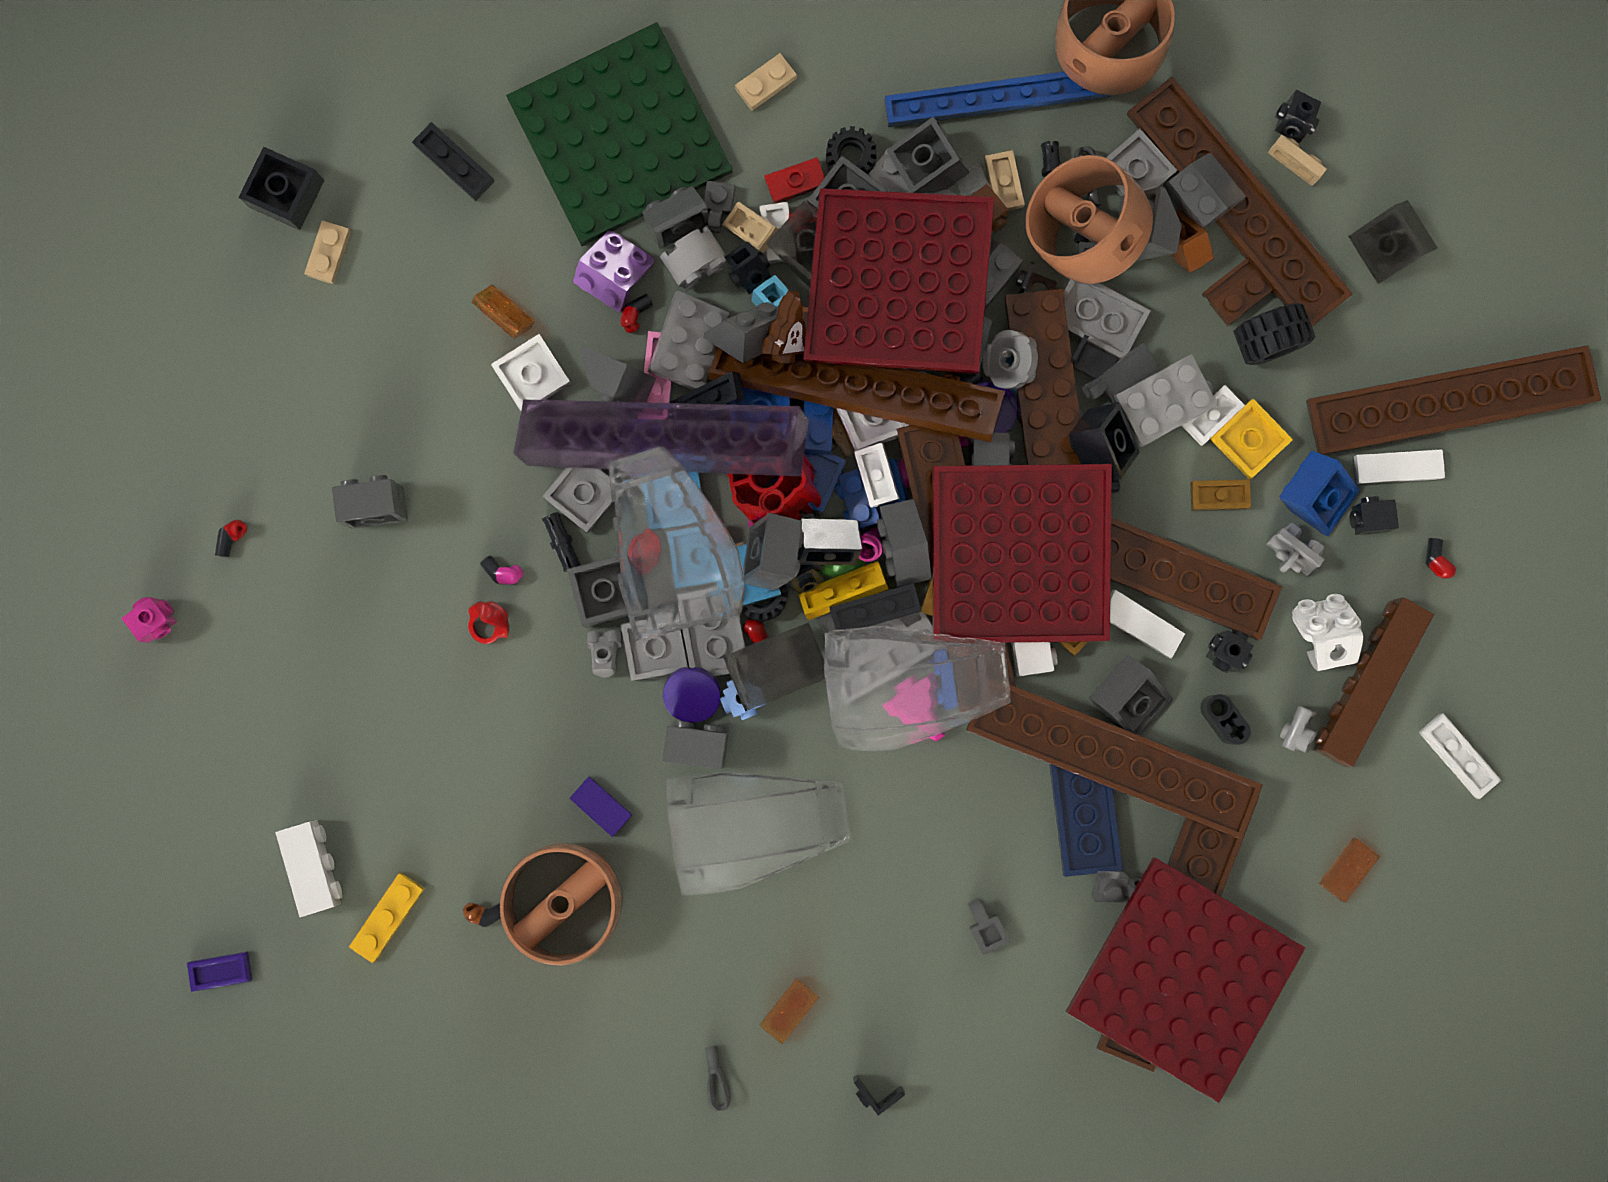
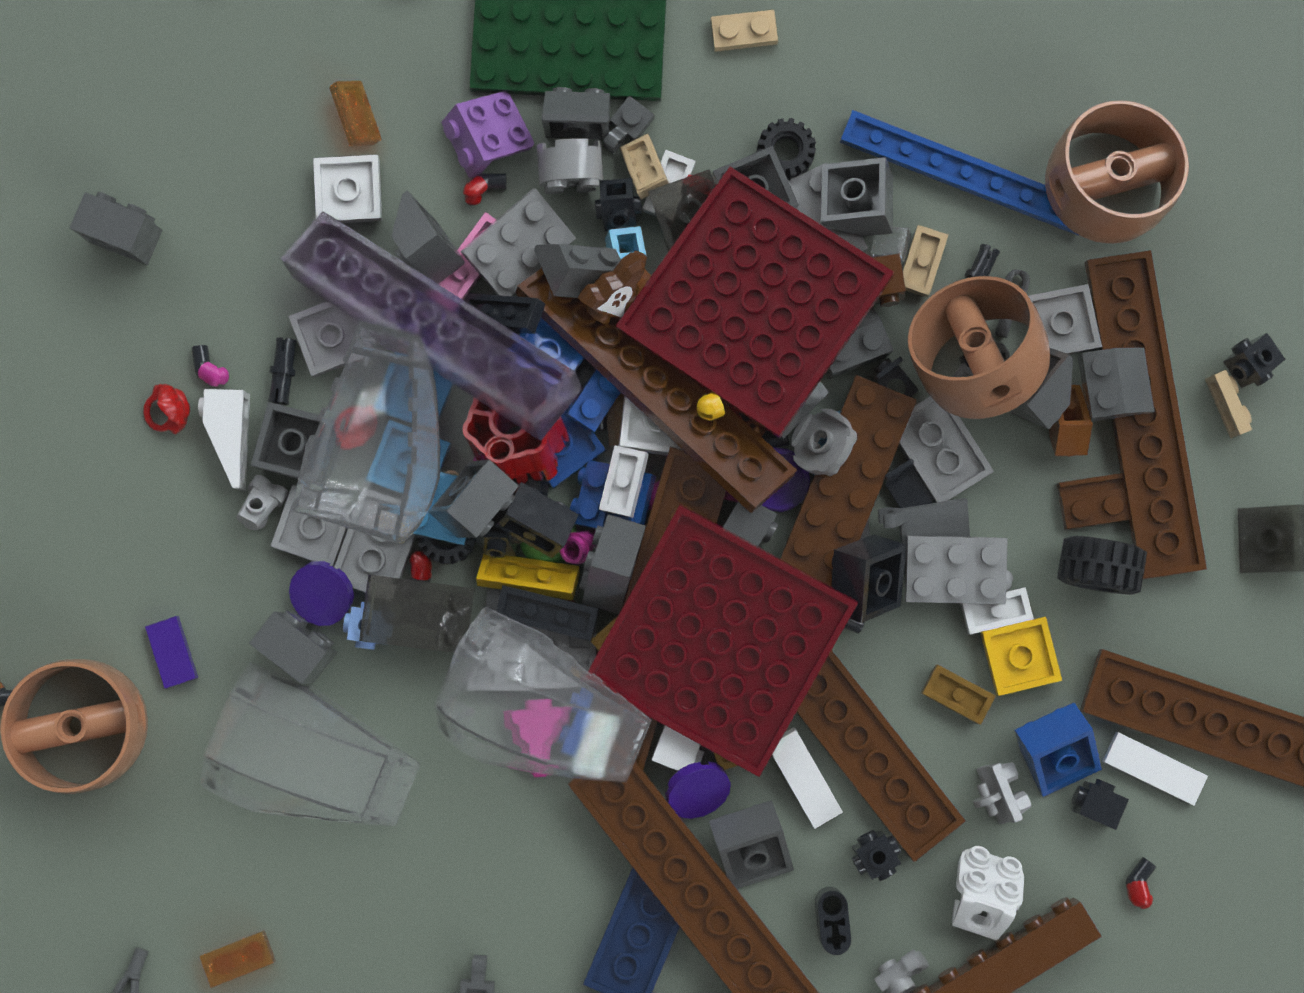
camera: 30 degrees right, 0 degrees up
(540, 603) = (227, 424): none -> white slope
(794, 180) = (715, 143): red plate -> none
(912, 379) = (710, 407): none -> yellow hinge
(1067, 678) = (698, 789): none -> dark purple tile

